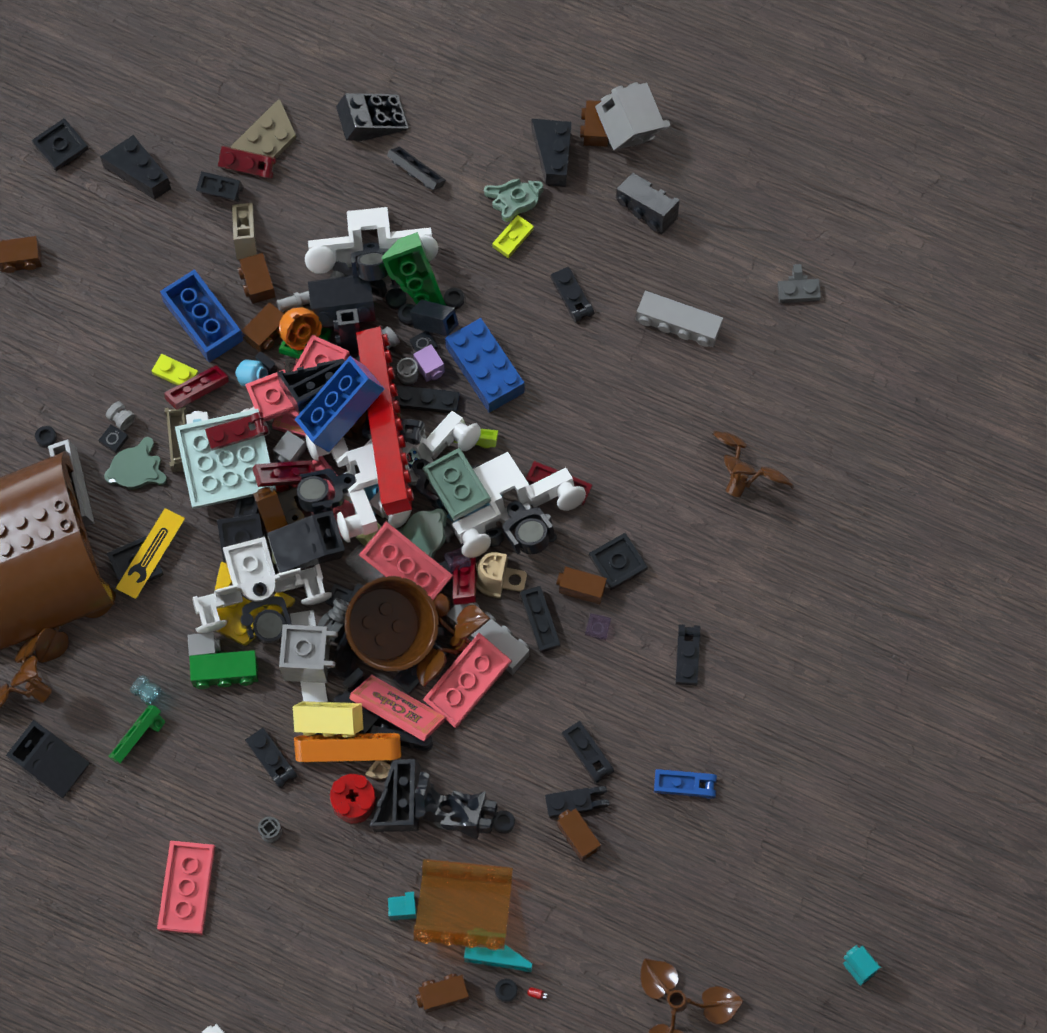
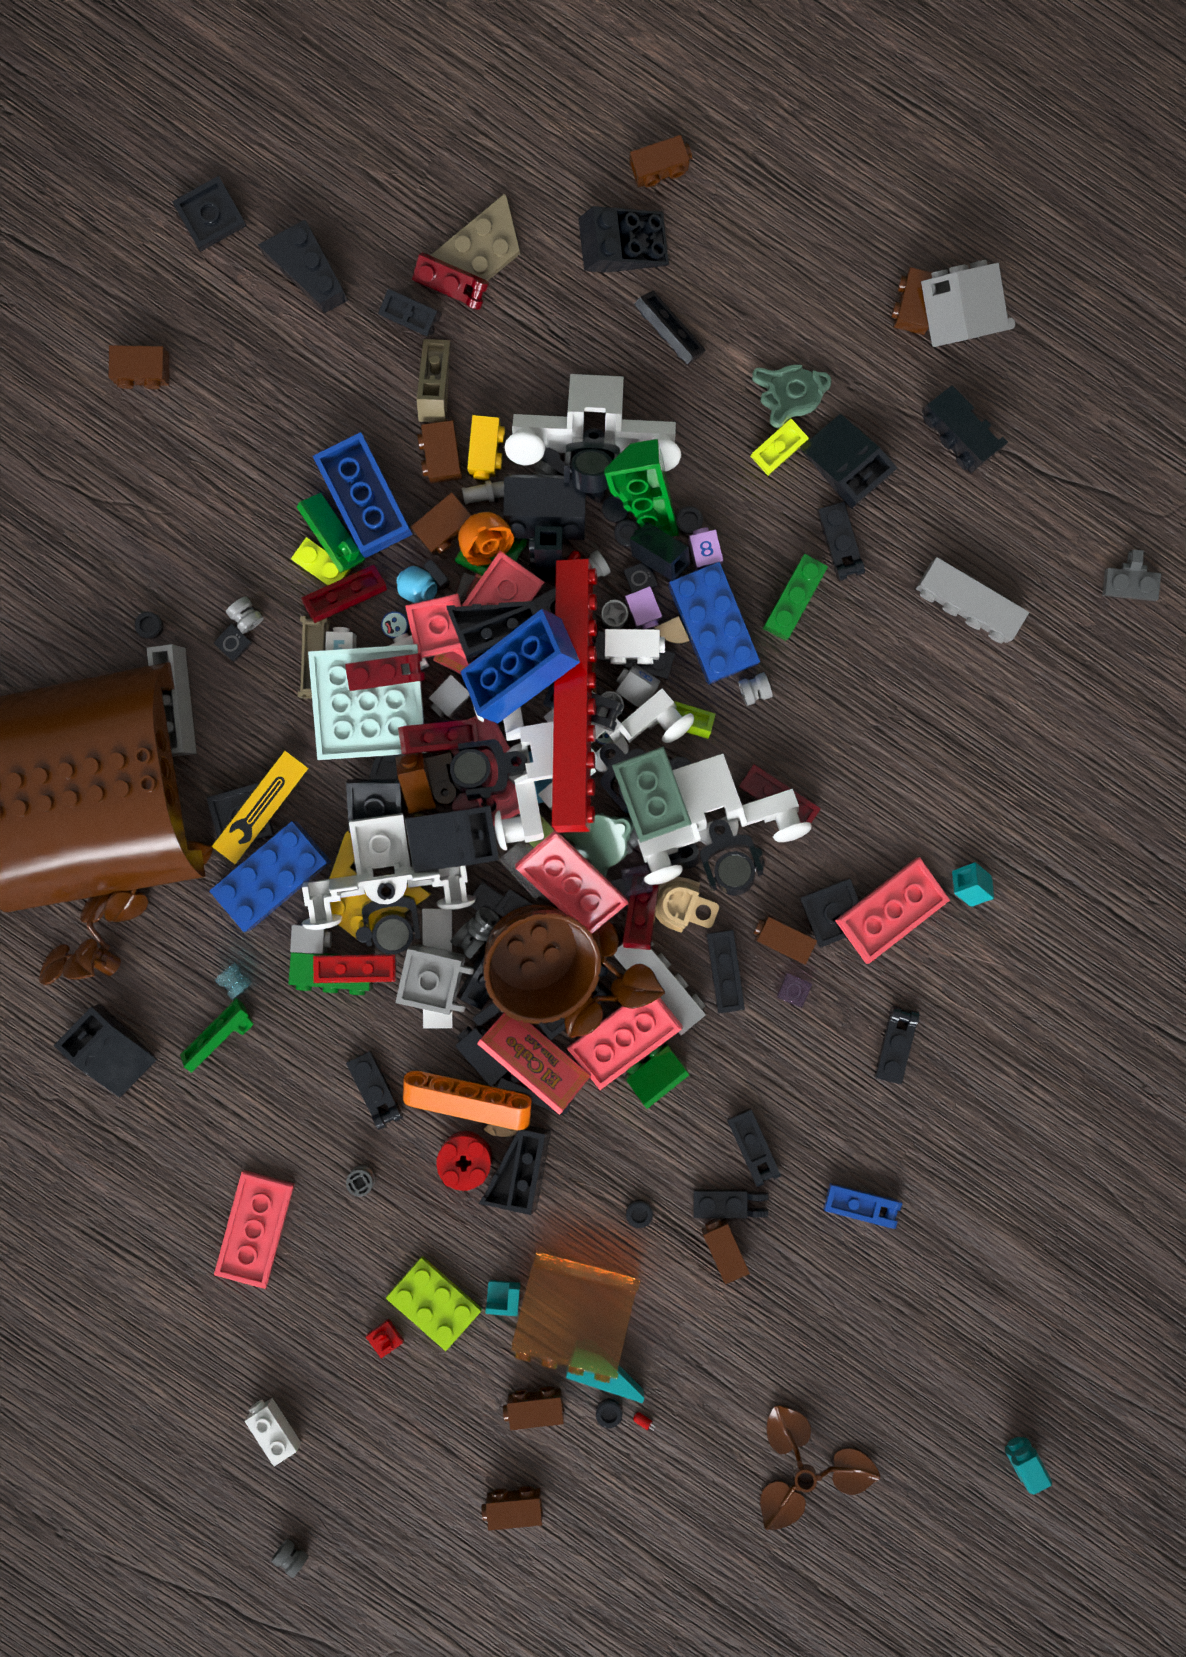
camera: 15 degrees right, 20 degrees up
(135, 467) = (255, 686): sand green tile -> none
(164, 603) = (270, 876): none -> blue brick
(188, 355) = (330, 532): none -> green hinge
(238, 404) = (394, 624): none -> tile
(242, 658) = (354, 968): none -> red tile
(289, 269) = (484, 445): none -> yellow brick
(307, 959) = (384, 1338): none -> red tile
(328, 718) = (448, 1062): light yellow brick -> none
(344, 923) = (434, 1303): none -> lime plate
(390, 60) = (660, 161): none -> reddish brown brick
(425, 386) = (633, 645): none -> white brick
(431, 415) = (636, 685): none -> light grey brick
(454, 377) = (673, 631): none -> tan tile
(463, 818) = (601, 1205): black hips -> none
(468, 311) = (705, 548): none -> lavender brick
(498, 704) = (656, 1075): none -> green slope
(525, 407) = (755, 689): none -> light grey wheel
(543, 337) = (795, 597): none -> green brick
(553, 148) = (854, 328): black wedge -> none
(567, 237) = (848, 460): none -> black slope
(663, 550) = (892, 910): none -> coral tile
(722, 522) = (973, 884): none -> teal panel
(738, 469) = (1008, 834): reddish brown plant -> none

